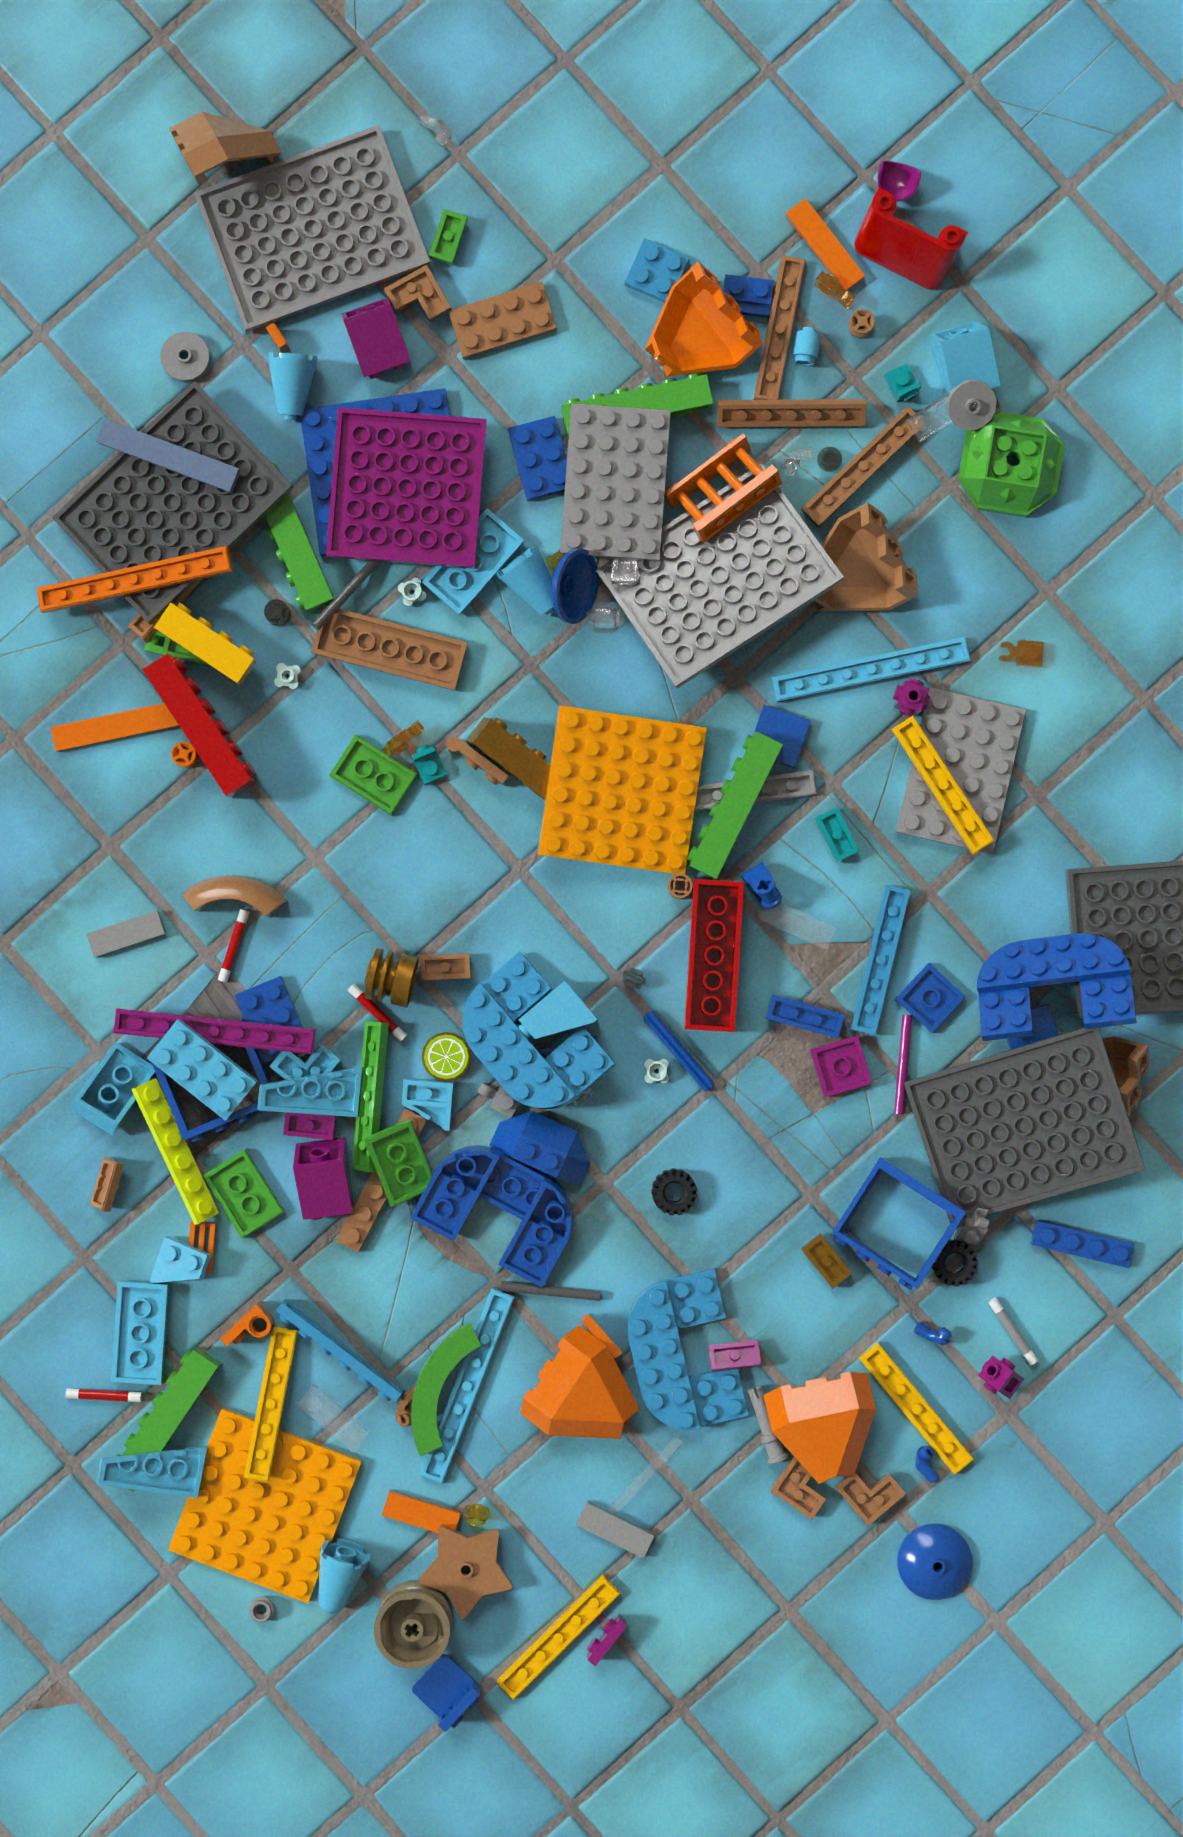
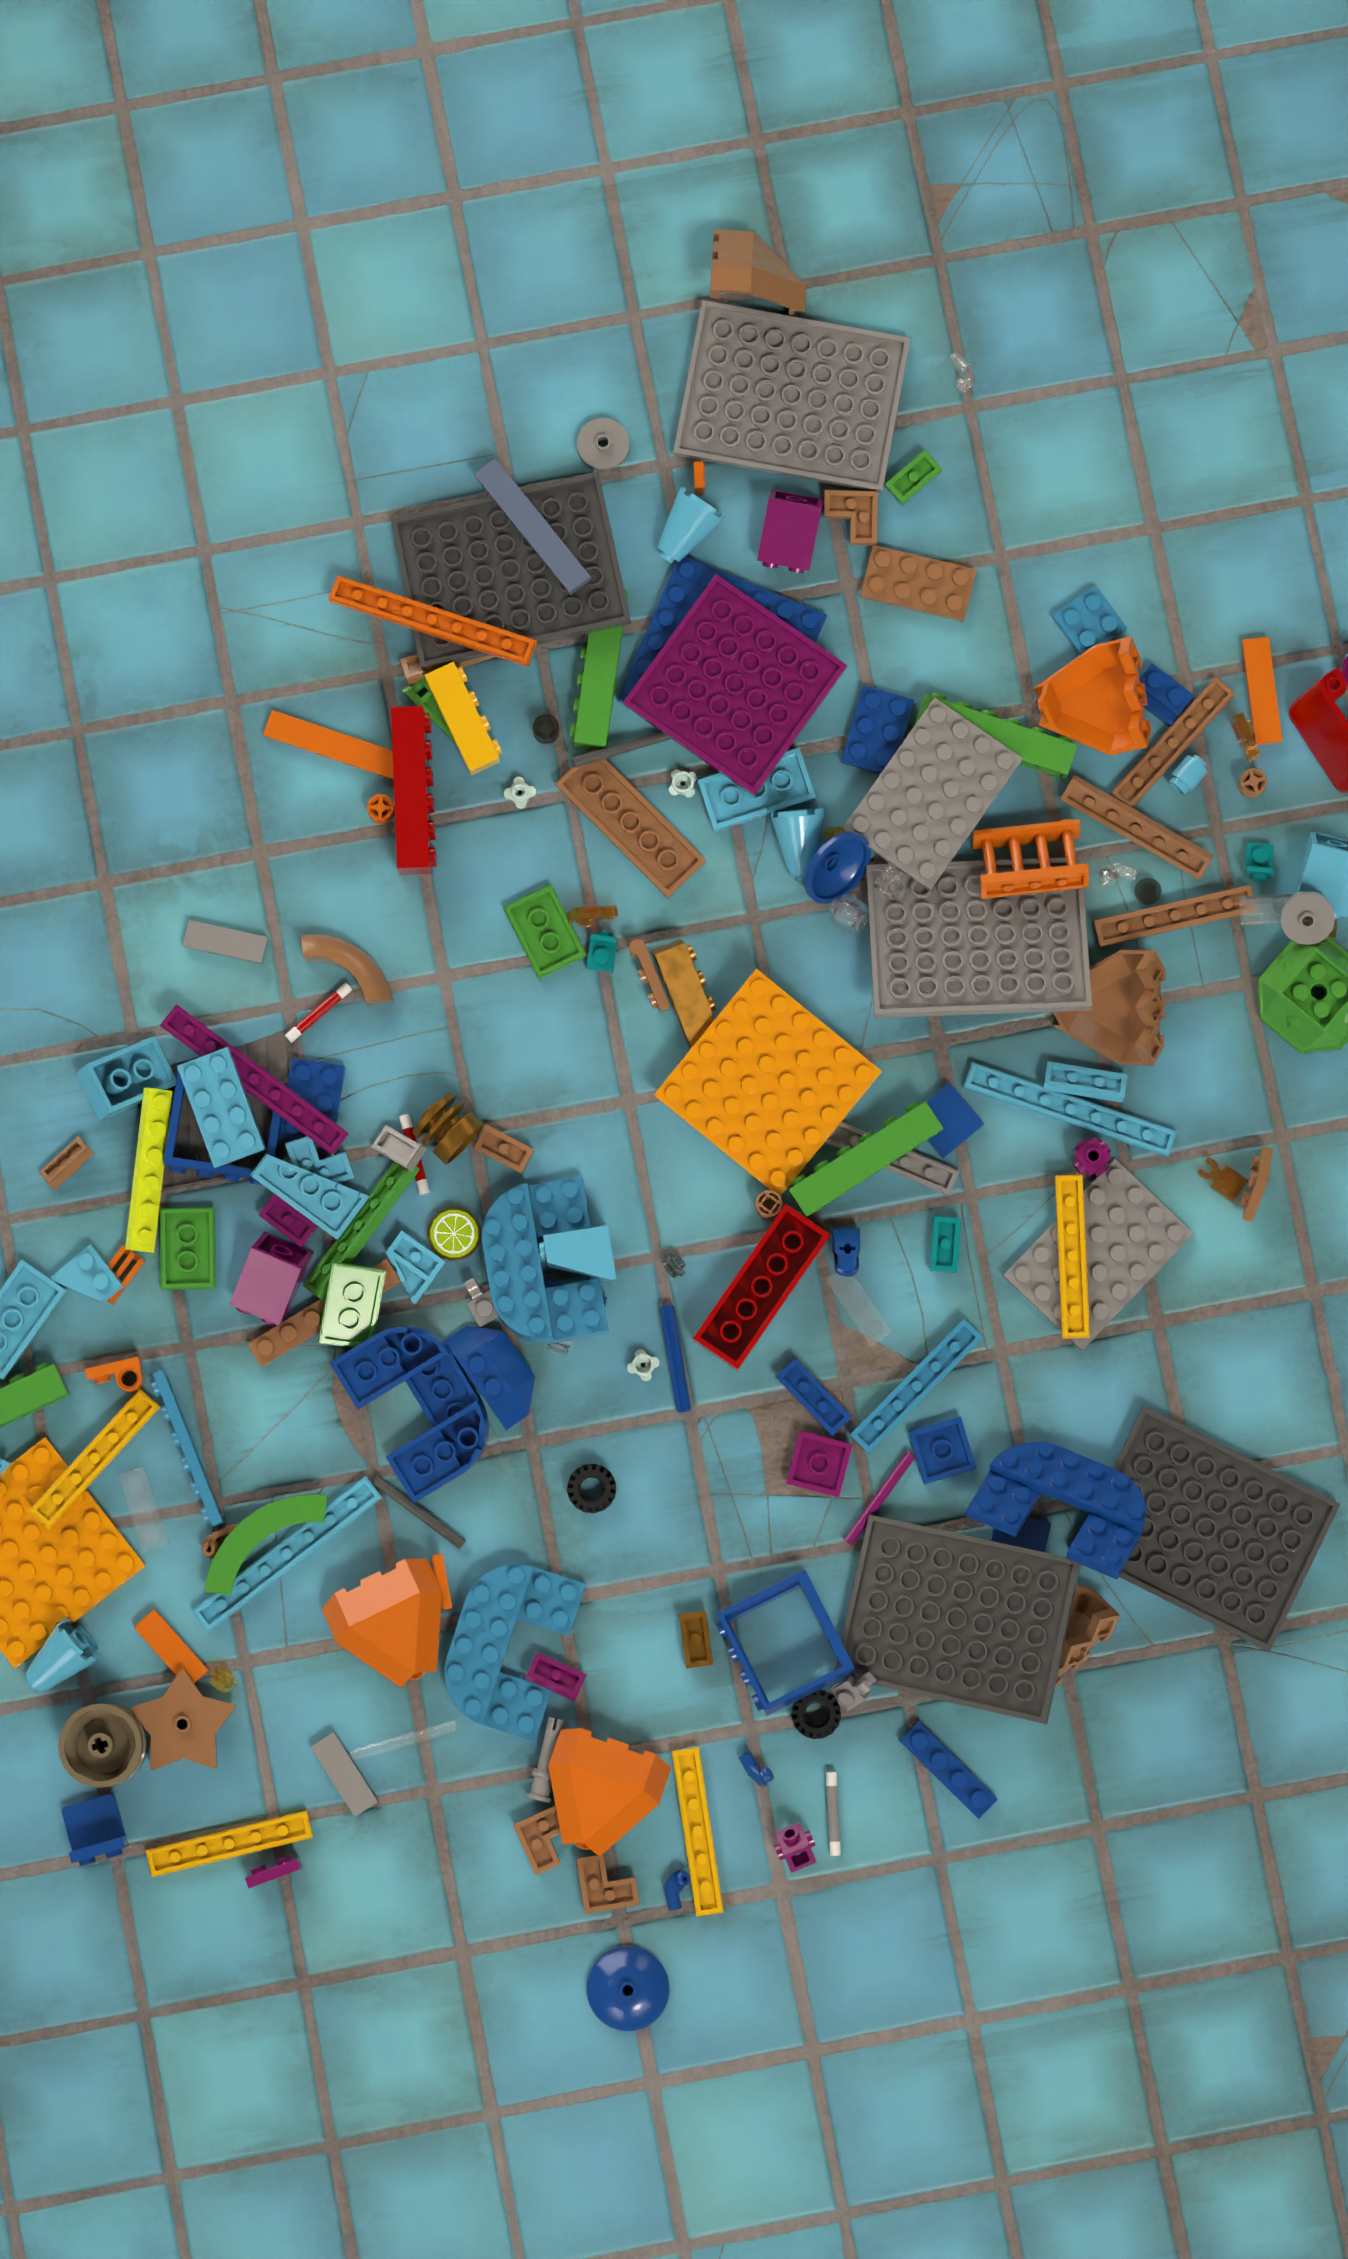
camera: 25 degrees right, 5 degrees down
(362, 1016) = (398, 1148): none -> light grey tile
(870, 640) = (1085, 1081): none -> medium azure plate
(1055, 640) = (1257, 1182): none -> medium nougat plate

